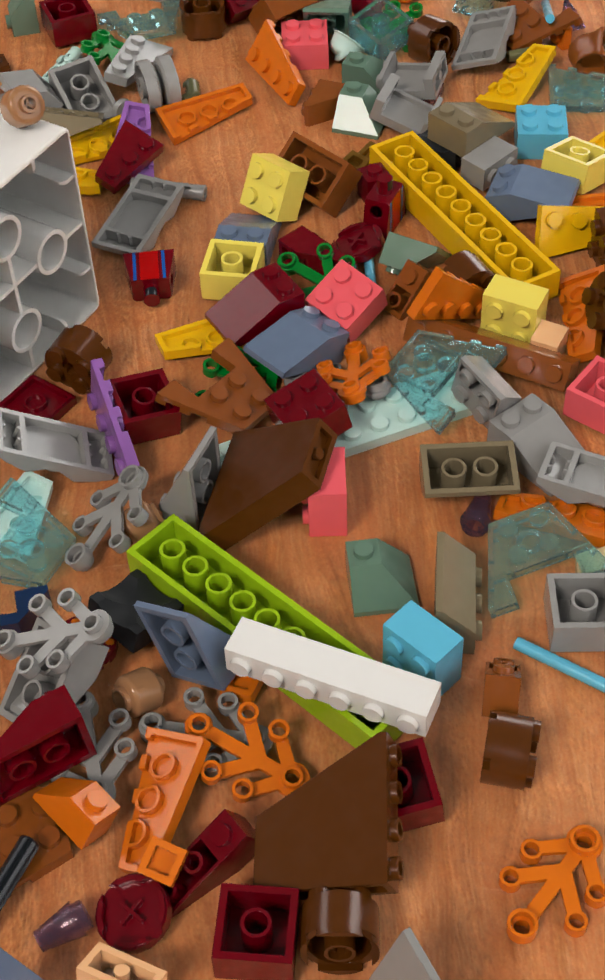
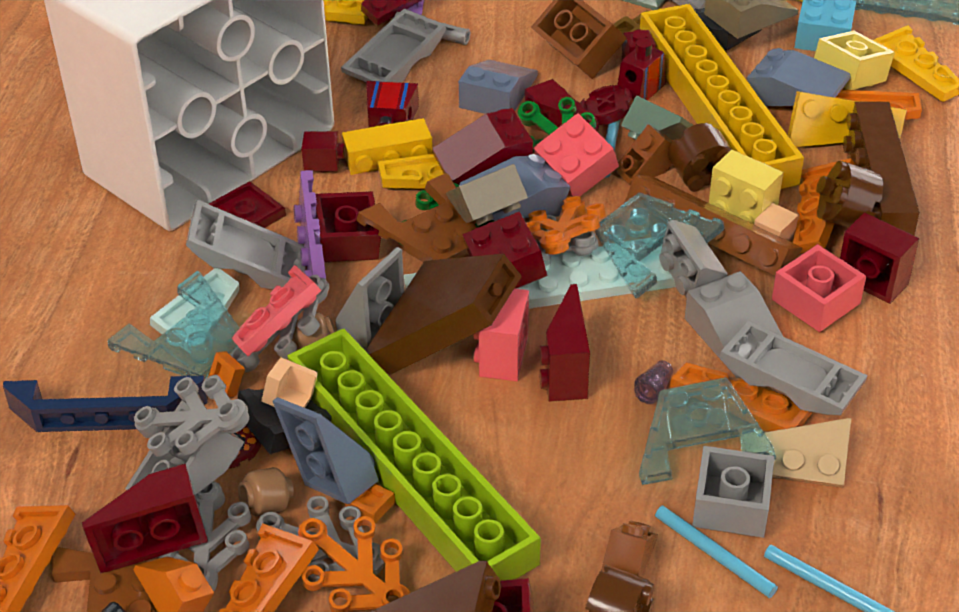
camera: 10 degrees right, 5 degrees down
(65, 575) = (228, 370): none -> orange plate
(71, 355) = (284, 165): reddish brown brick -> none
(103, 325) = (321, 151): none -> dark red brick
(109, 501) = (277, 315): none -> coral wing
(138, 581) = (289, 383): none -> light nougat panel
(157, 314) = (391, 141): none -> yellow brick
(227, 265) = (465, 103): light yellow brick -> none
(274, 187) = (534, 39): light yellow brick -> none
(277, 355) = (488, 194): none -> dark tan slope
(333, 676) = (455, 505): white brick -> none
(378, 577) = (536, 425): sand green slope -> none
(394, 499) = (566, 352): none -> dark red slope
(423, 645) = (556, 500): medium azure brick -> none
(447, 298) = (674, 165): orange wing -> none
(456, 590) = (606, 454): dark tan slope -> none
(468, 469) = (654, 333): dark tan slope -> none
(483, 162) = (754, 44): light grey brick -> none

